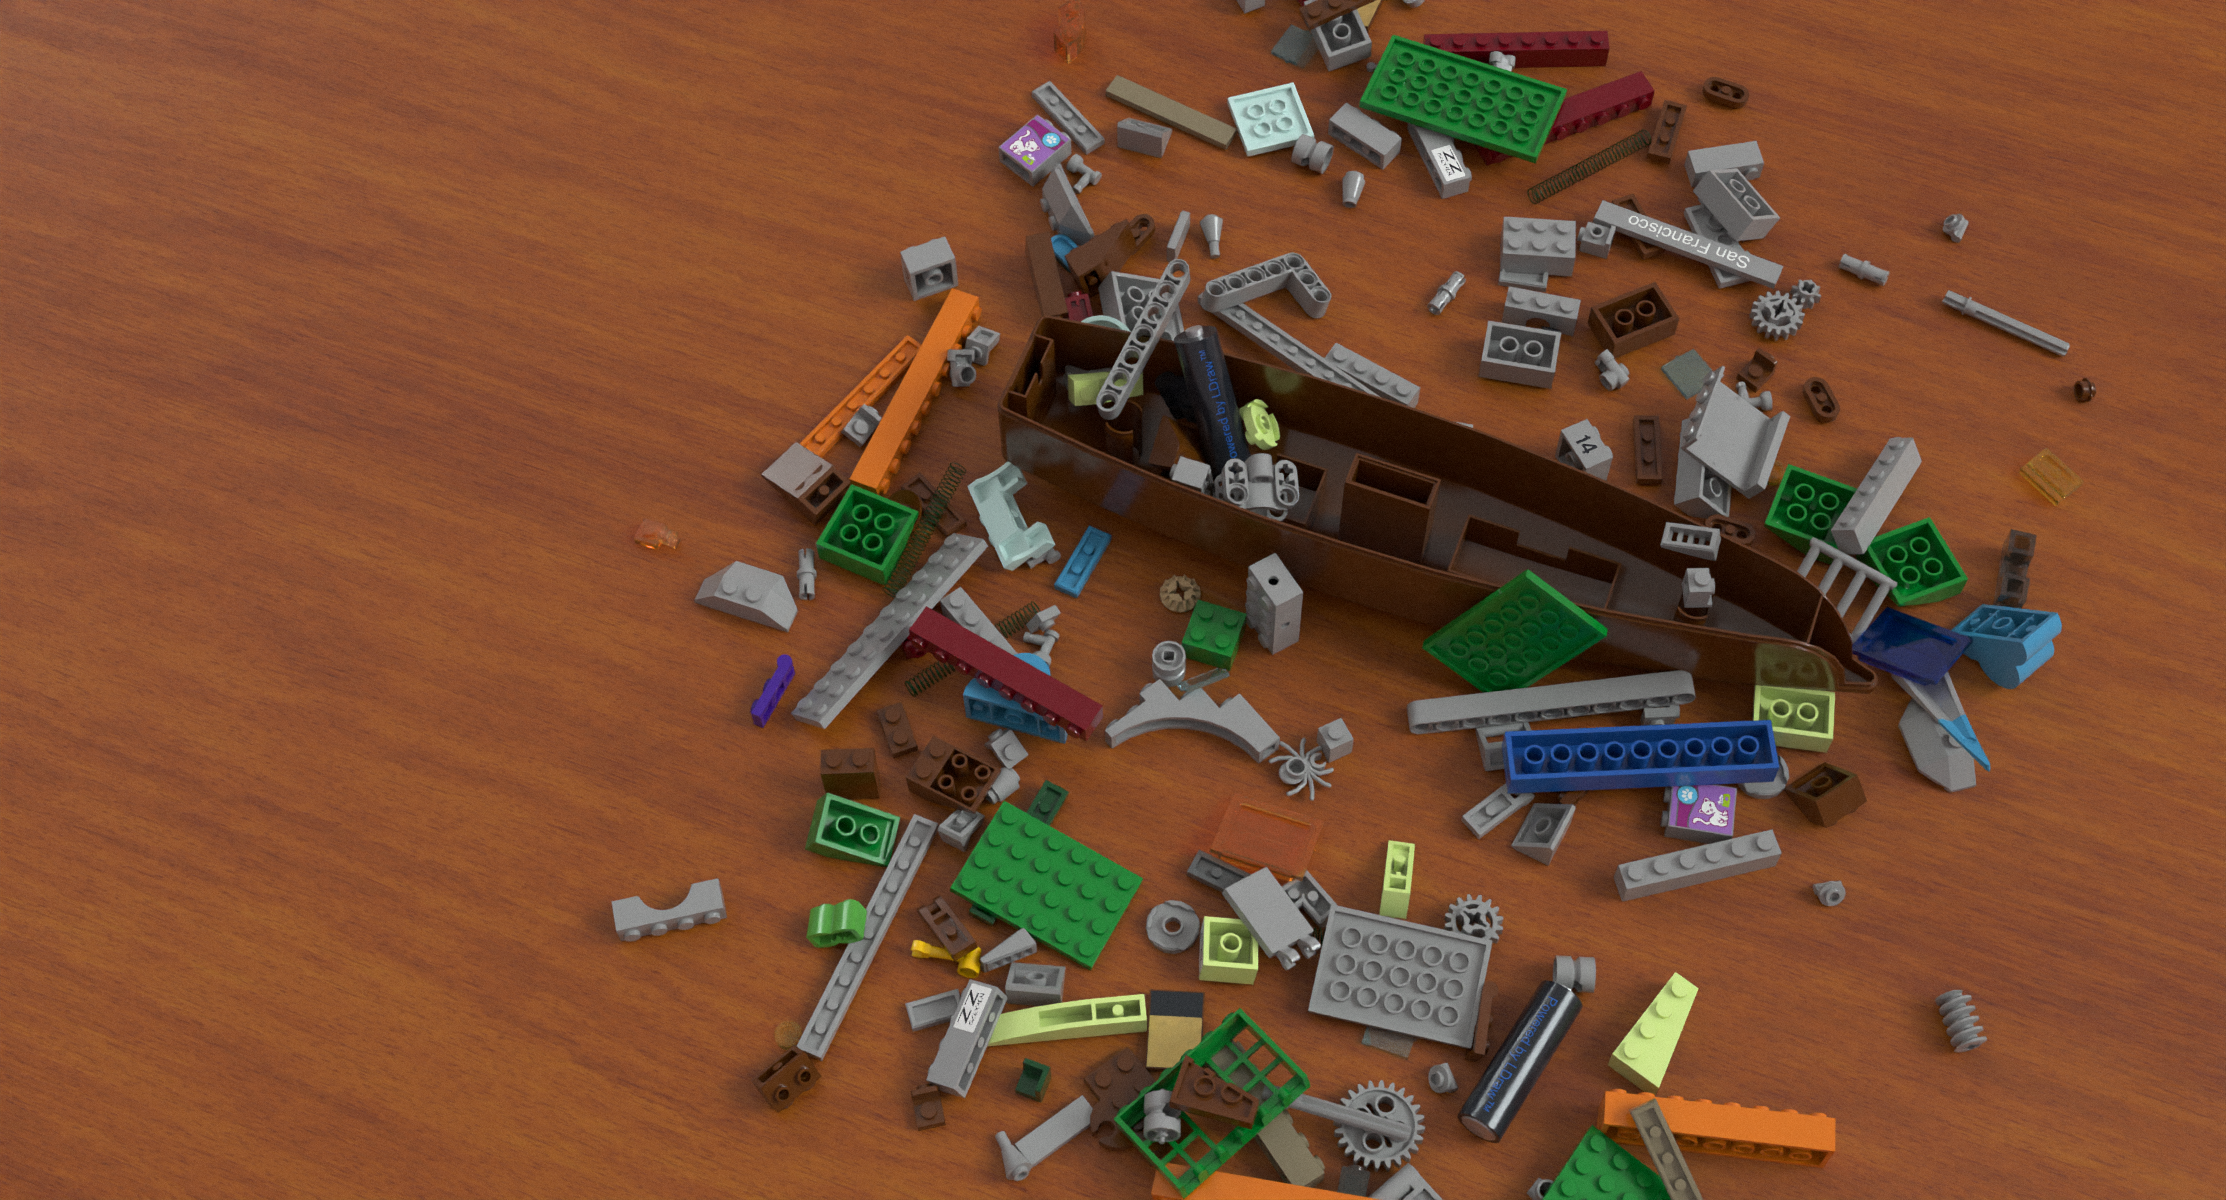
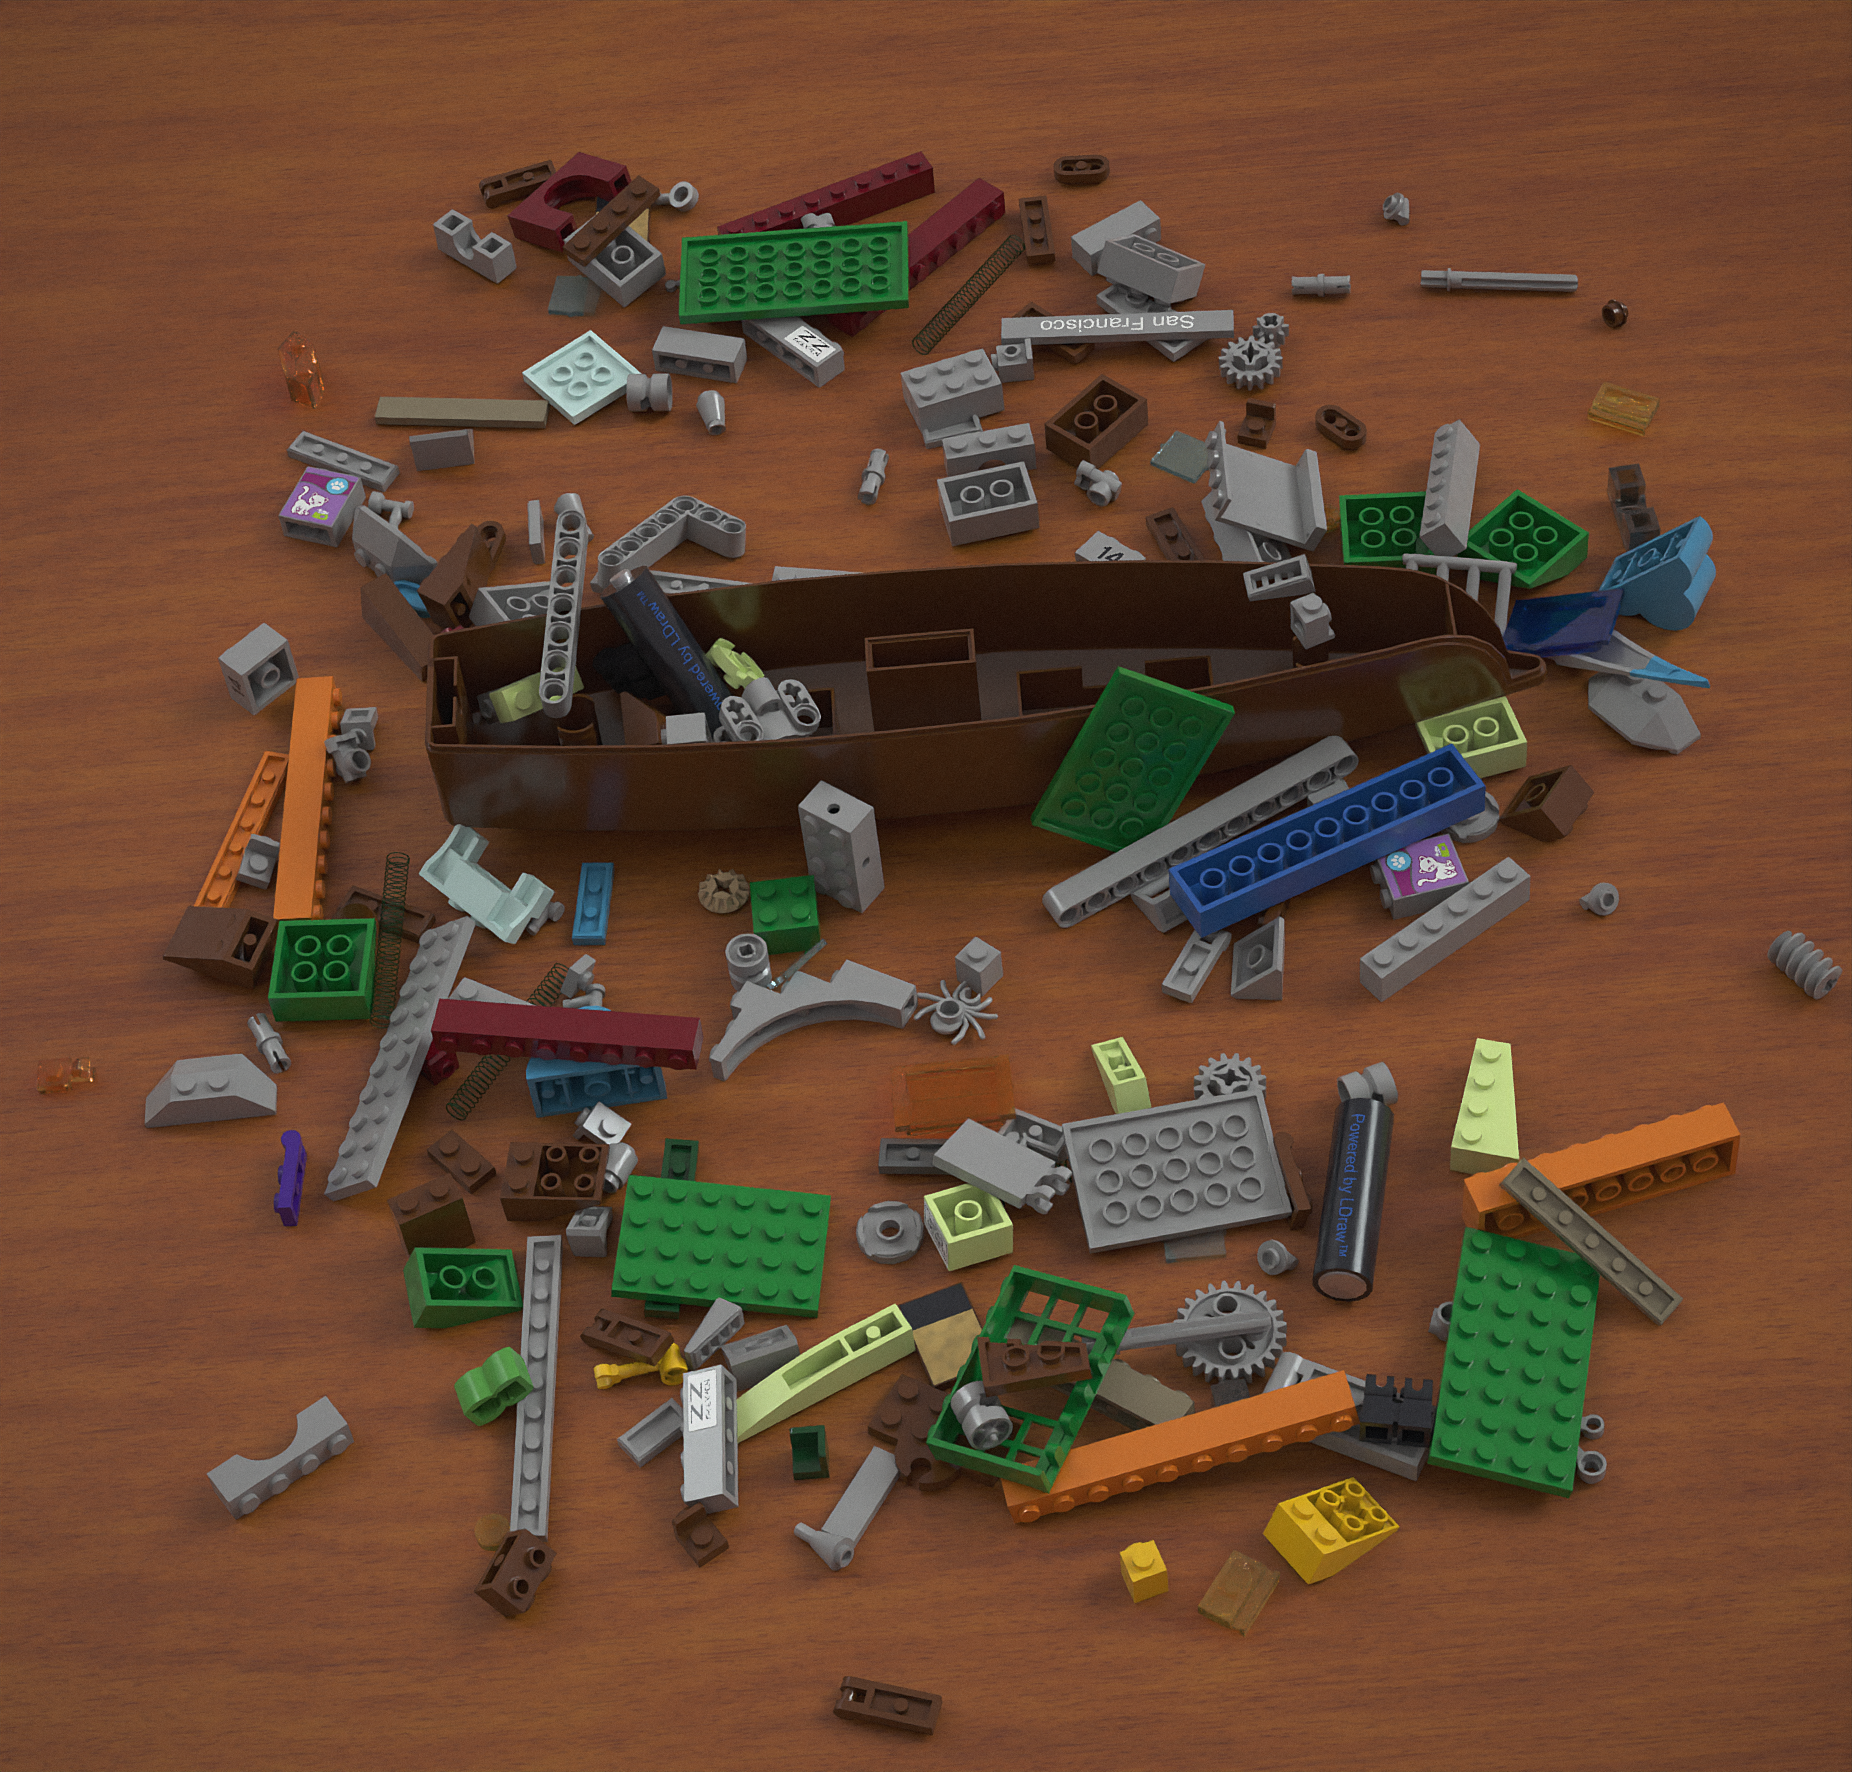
camera: 20 degrees left, 10 degrees down
(1763, 401) = (1280, 450): light grey piece -> none

